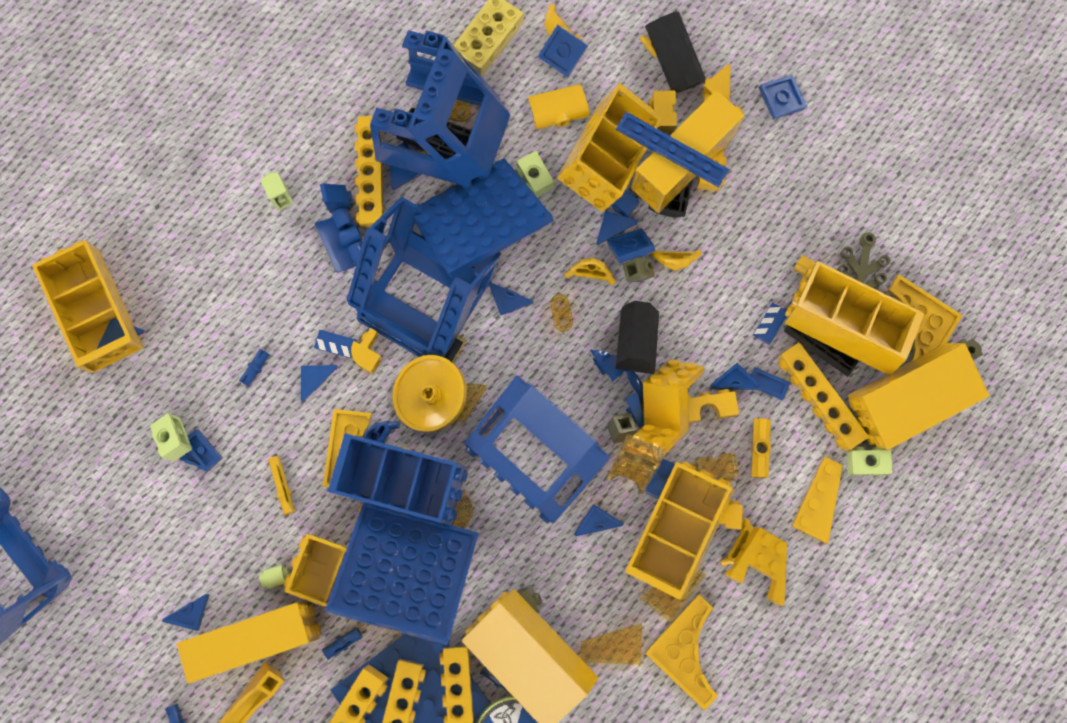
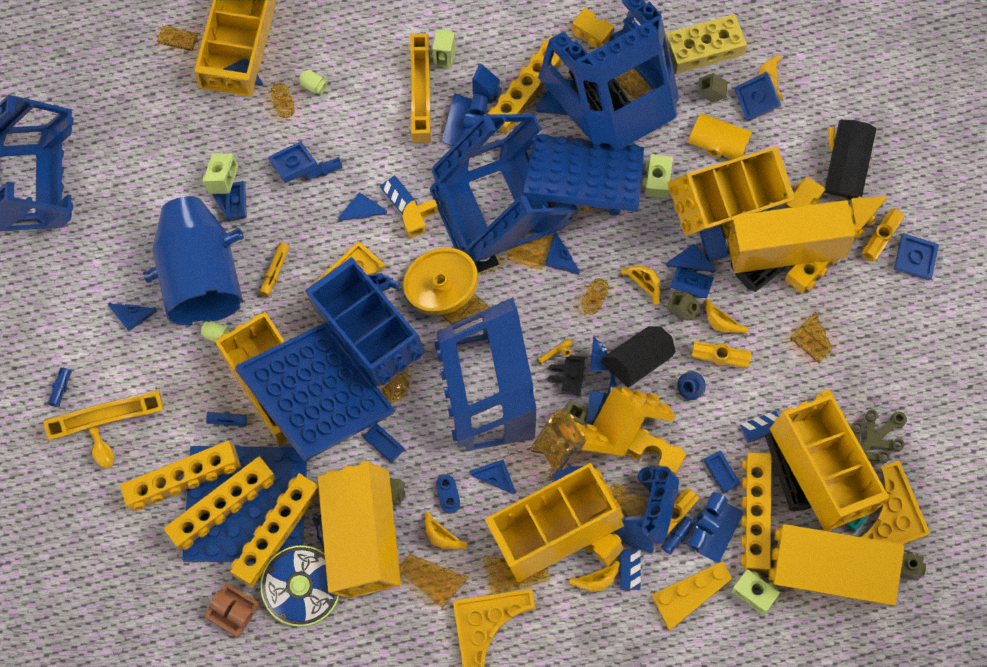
camera: 40 degrees right, 10 degrees down
(37, 343) = (177, 38): none -> clear yellow plate
(173, 334) = (283, 101): none -> clear yellow plate
(187, 298) = (312, 82): none -> yellowish green brick
(210, 535) = (194, 263): none -> blue piece
(225, 381) = (293, 162): none -> blue plate
(248, 641) = (161, 360): yellow container -> none
(283, 239) = (420, 88): none -> yellow arch
(386, 87) = (592, 29): none -> yellow brick
(484, 313) = (532, 253): none -> clear yellow wing
(488, 563) = (383, 443): none -> blue tile
(522, 68) = (713, 87): none -> olive brick
(567, 376) = (561, 348): none -> yellow piece
(571, 566) = (448, 493): none -> blue plate
(593, 606) = (440, 536): none -> yellow piece
(594, 393) = (572, 376): none -> black hinge
(672, 149) = (773, 220): blue tile -> none
(687, 293) = (709, 352): none -> yellow piece
(694, 331) = (691, 385): none -> blue plate
(736, 379) = (696, 448): blue tile -> none
(744, 86) = (877, 242): none -> yellow piece
(745, 453) = (663, 490): none -> blue beam
(745, 485) = (632, 533): none -> blue wing
(755, 222) = (812, 338): none -> clear yellow wing
(760, 516) = (630, 569): none -> blue tile
(766, 555) = (610, 598): yellow wing -> none
(775, 462) = (677, 535): none -> blue pin
(798, 433) = (714, 527): none -> blue panel

